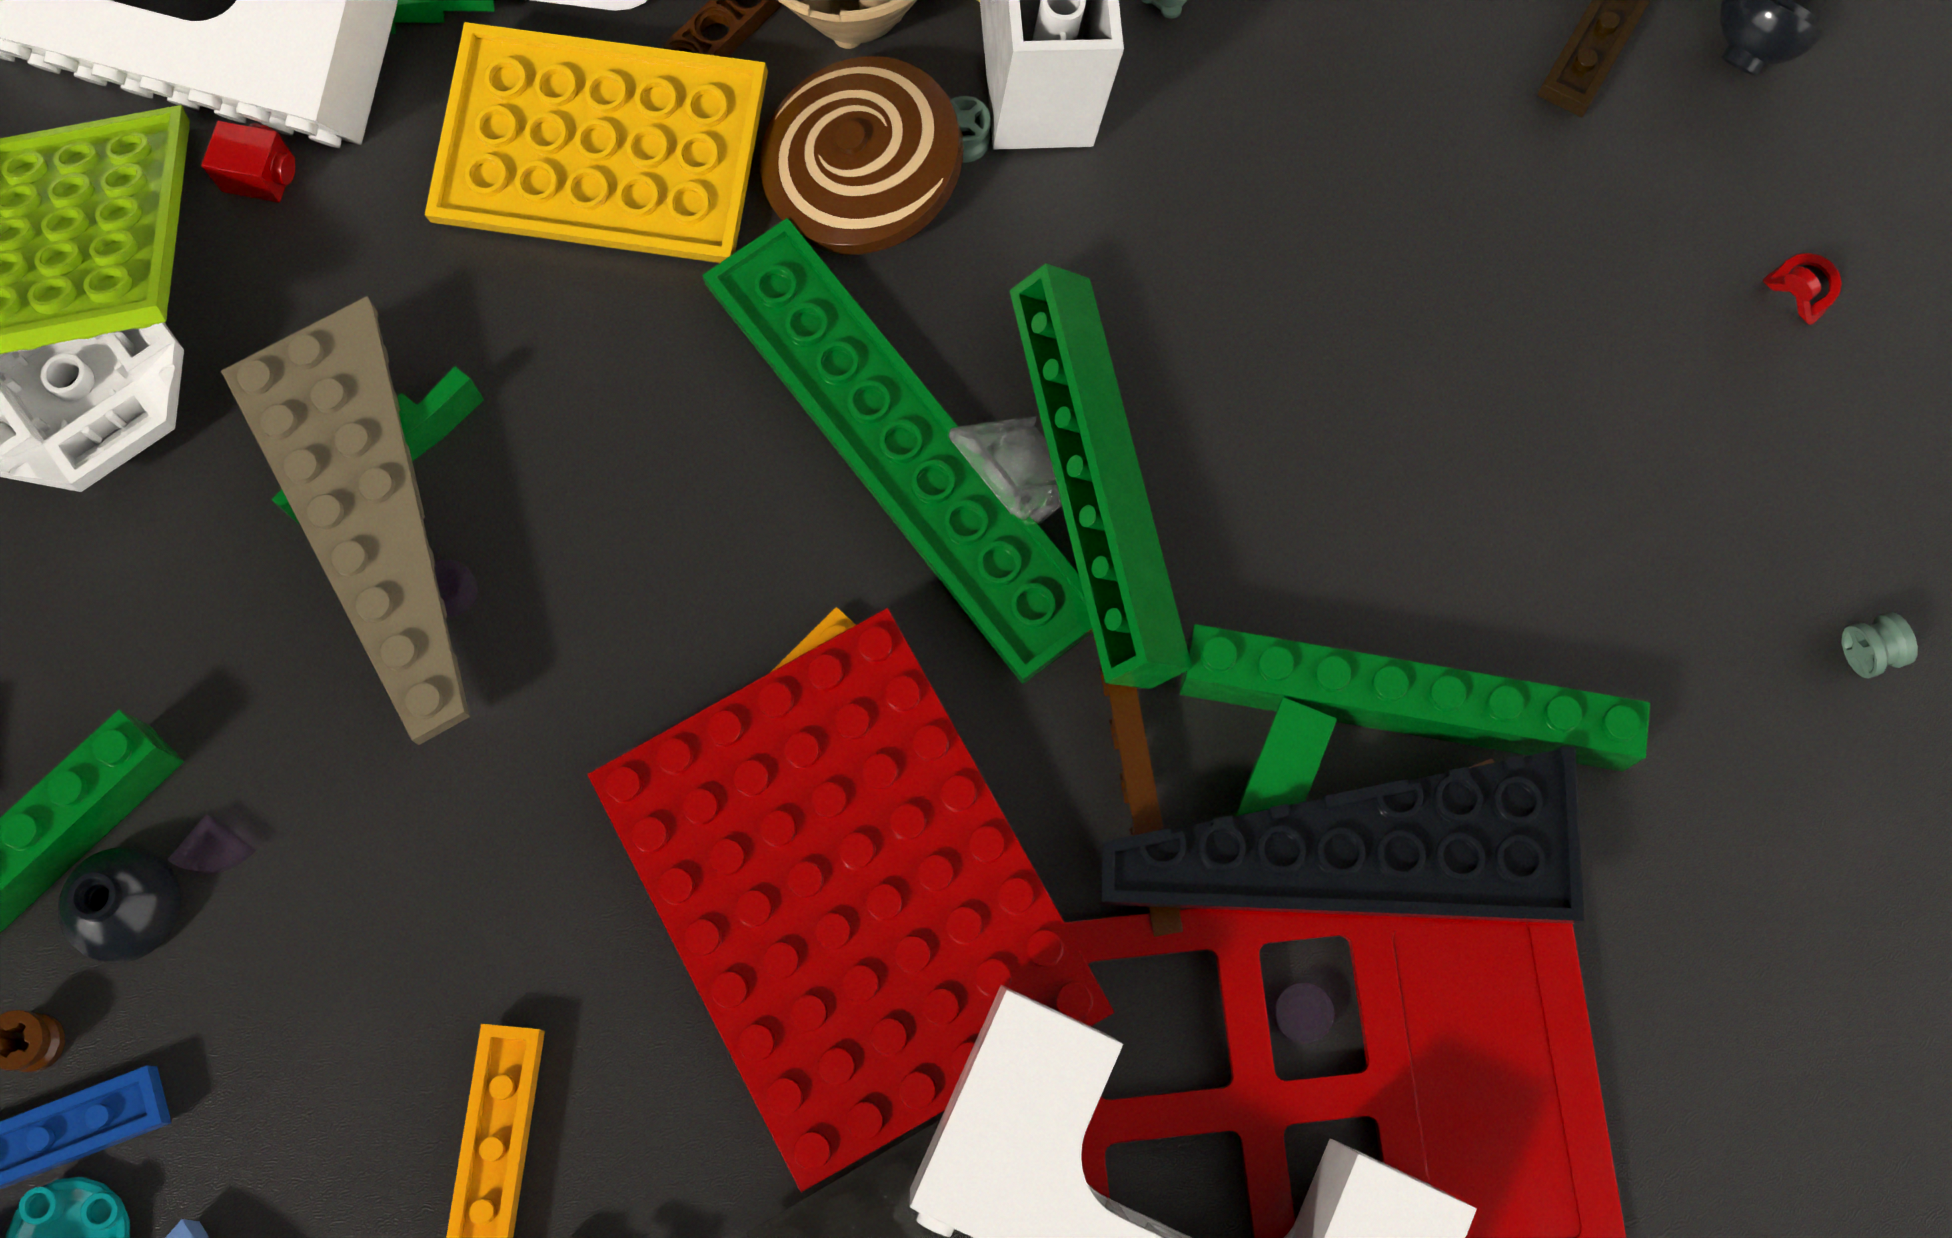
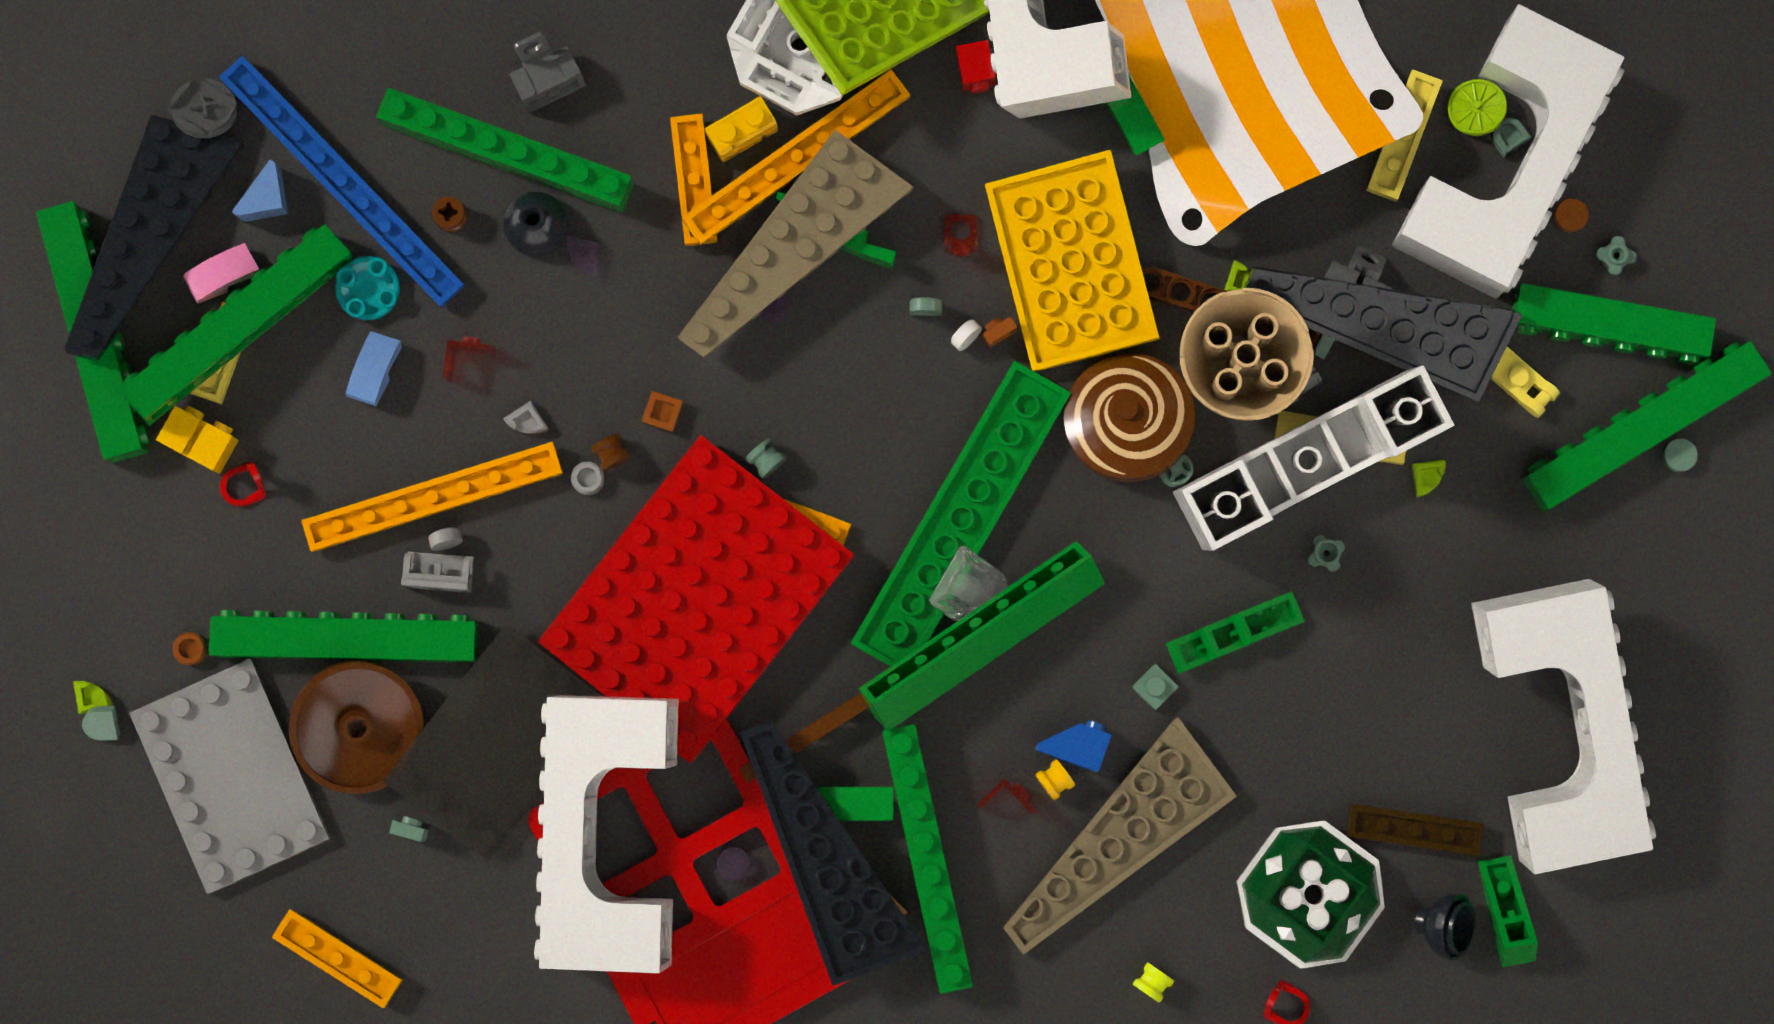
camera: 70 degrees right, 10 degrees up
(150, 520) = (741, 129): none -> yellow brick
(189, 625) = (691, 167): none -> light orange plate
(237, 472) = (793, 158): none -> light orange plate
(251, 1104) = (467, 344): none -> clear red bracket
(428, 1056) = (526, 420): none -> light grey tile
(492, 282) = (960, 247): none -> clear red bracket
(524, 826) = (662, 412): none -> dark orange tile
(546, 934) = (610, 452): none -> reddish brown wheel
(561, 368) = (926, 306): none -> sand green tile
(571, 993) = (587, 478): none -> light grey tile
(631, 328) = (966, 334): none -> white tile
(648, 280) = (998, 330): none -> dark orange plate
(674, 691) = (766, 458): none -> sand green wheel
(1233, 145) = (1235, 632): none -> green slope
(1267, 280) = (1154, 687): none -> sand green plate
(1317, 410) = (1078, 745): none -> blue slope
(1354, 527) = (1016, 790): none -> clear red bracket
(1356, 464) = (1055, 779): none -> yellow wheel
(1456, 360) = (1148, 812): none -> dark tan wing
(1626, 221) = (1275, 899): none -> dark green piece
(1717, 446) = (1153, 982): none -> neon yellow wheel

